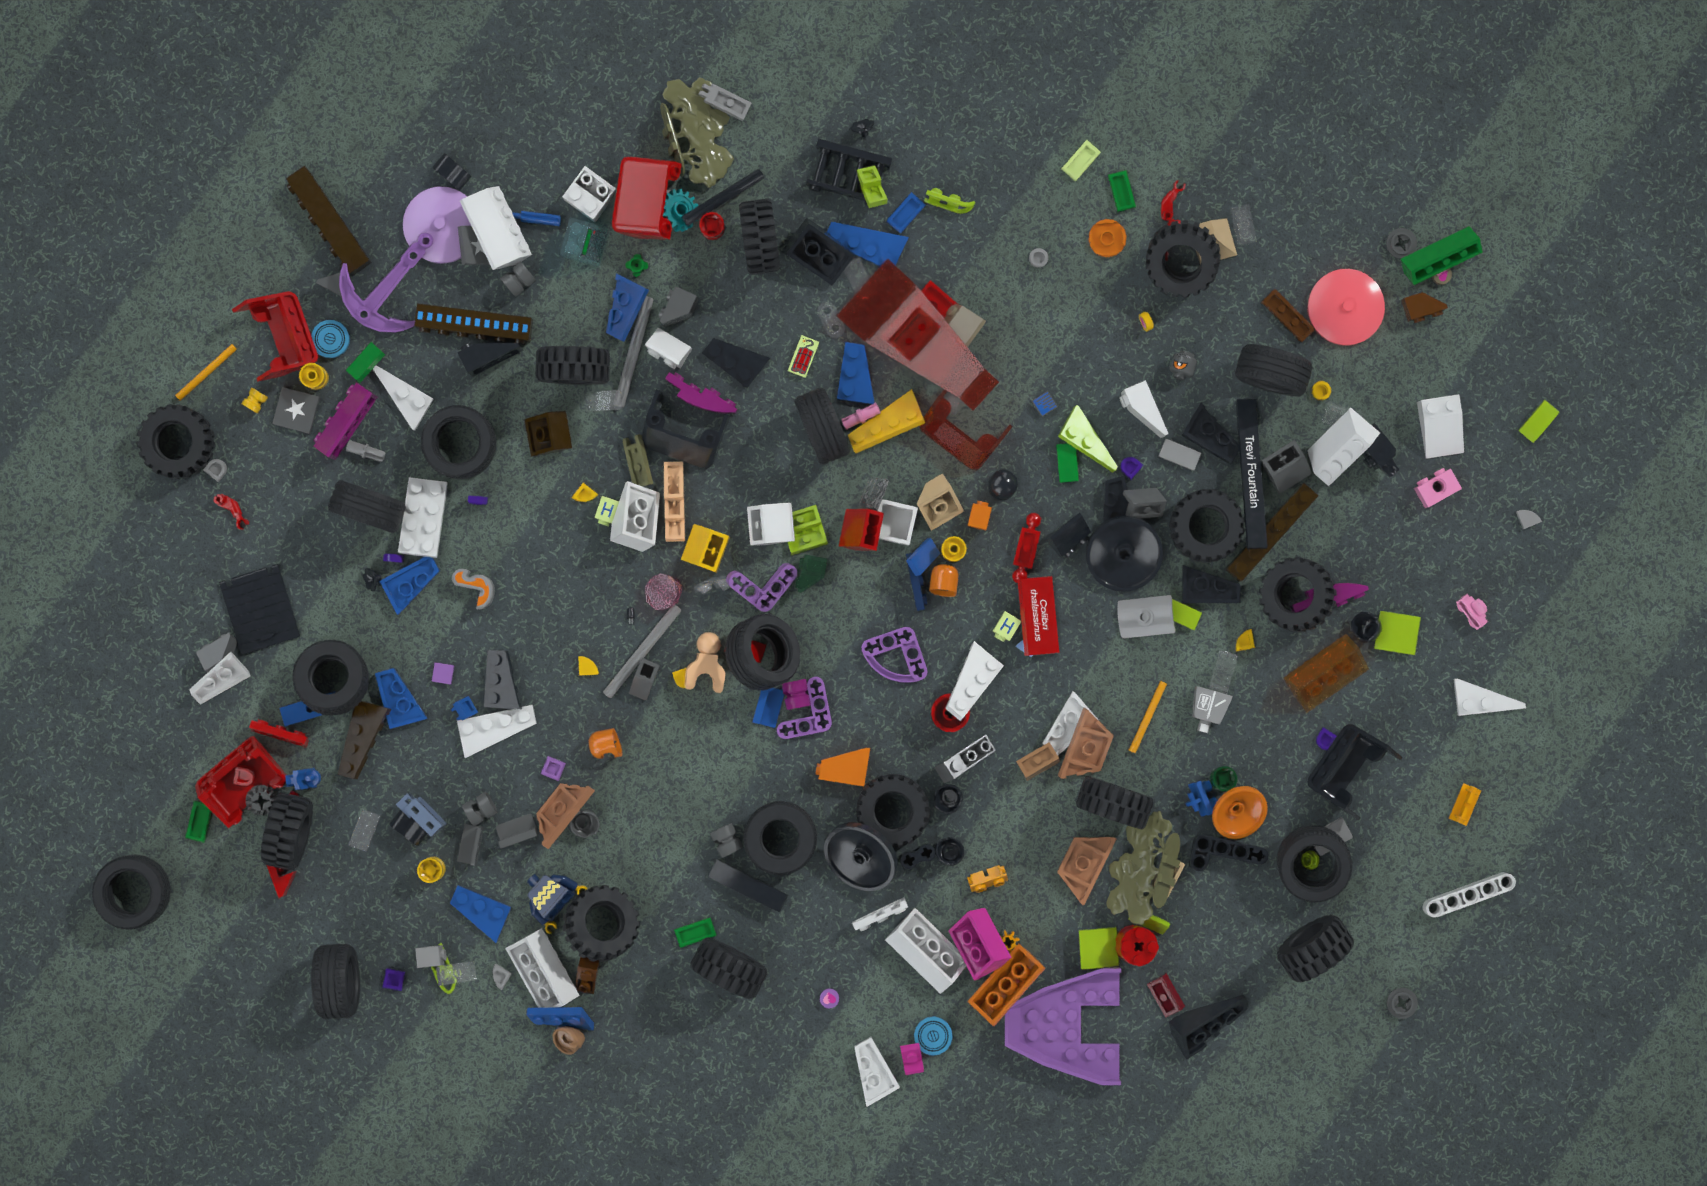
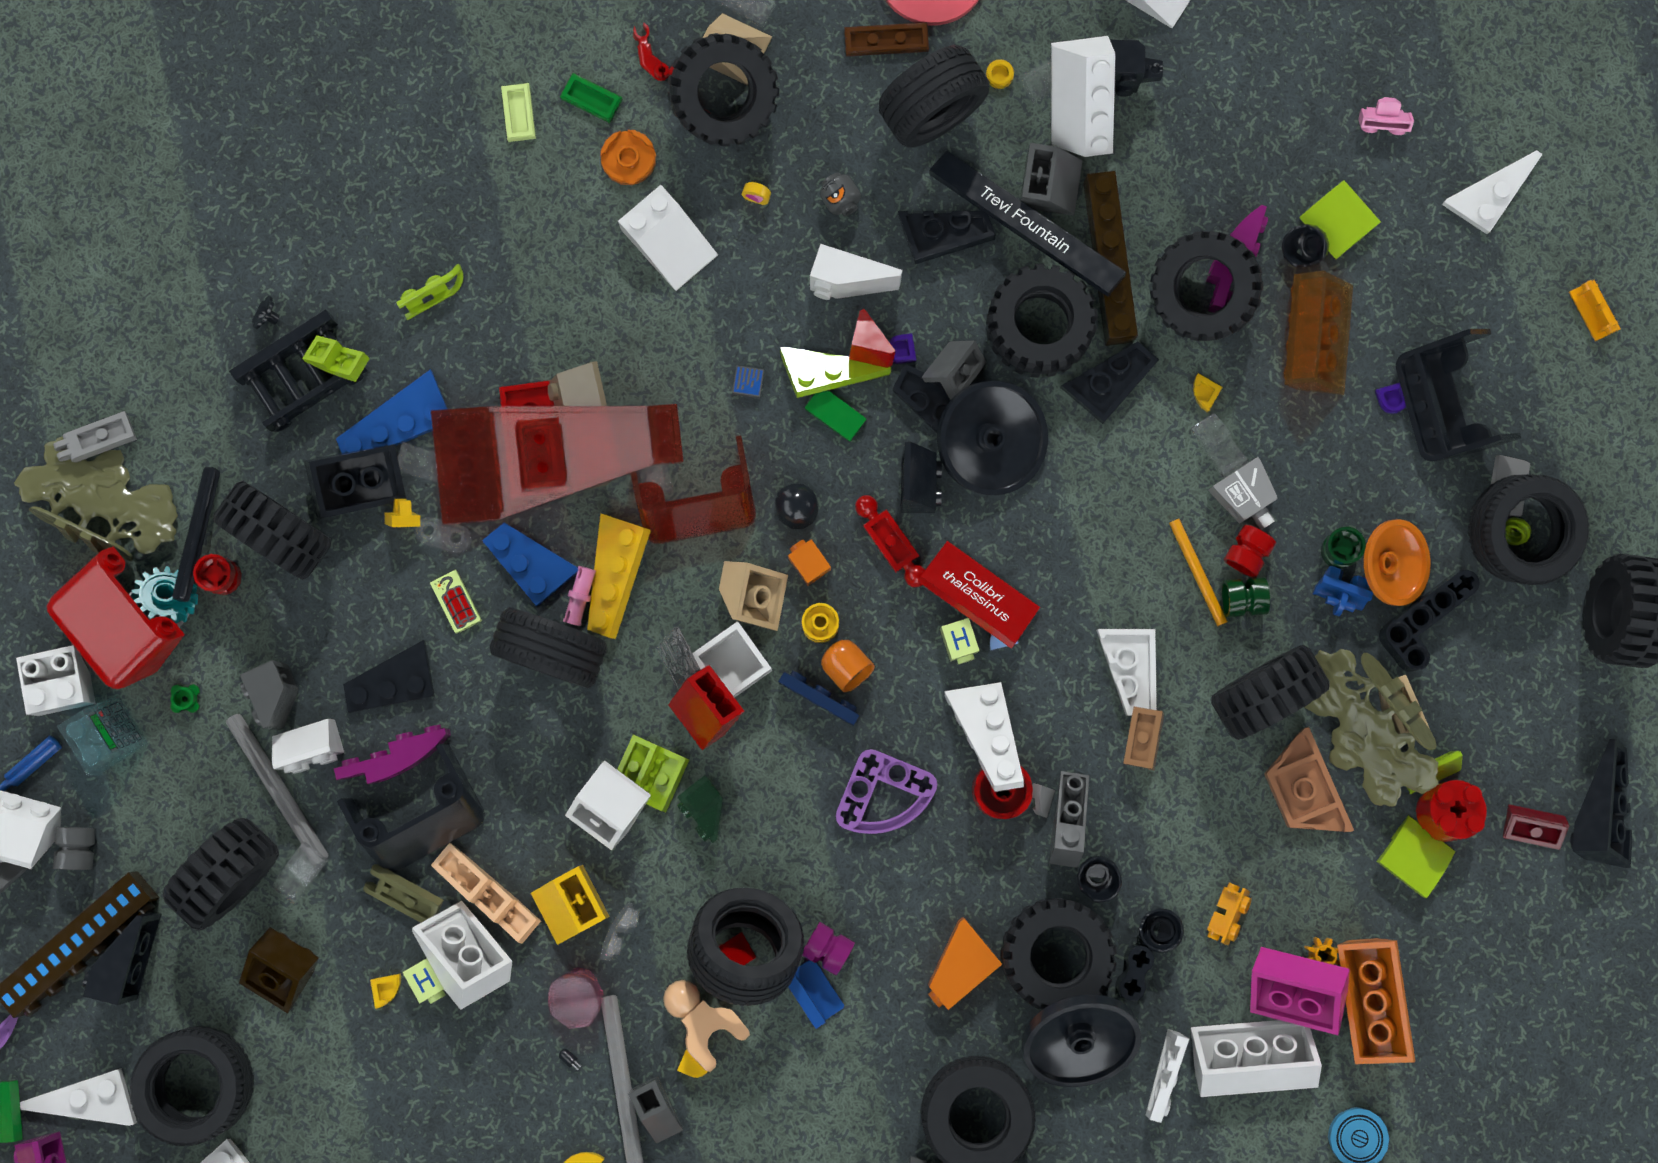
camera: 45 degrees left, 5 degrees down
(478, 500) = (278, 1122): dark purple tile -> none
(626, 305) = (217, 750): blue wing -> none
(760, 594) = (677, 888): medium lavender beam -> none
(812, 720) = (873, 956): medium lavender beam -> none
(822, 291) = (402, 515): none -> yellow tile
(906, 213) = (401, 349): blue tile -> none
(923, 557) = (798, 665): blue tile -> none
(963, 737) = (1043, 799): none -> light grey tile
(1038, 258) = (582, 249): light grey tile -> none
(1049, 1027) = (1462, 995): medium lavender piece -> none
(1082, 297) = (667, 238): none -> white slope
(1087, 747) = (1175, 669): nougat wing -> none
(1118, 449) = (870, 344): none -> slope
(1146, 616) = (1084, 475): light grey shield -> none
(1157, 753) = (1246, 597): none -> dark green wheel
(1179, 454) = (935, 284): light grey tile -> none
(1180, 733) = (1248, 553): none -> red wheel
(1185, 615) = (1111, 436): lime slope -> none
(1448, 486) = (1222, 26): bright pink brick -> none

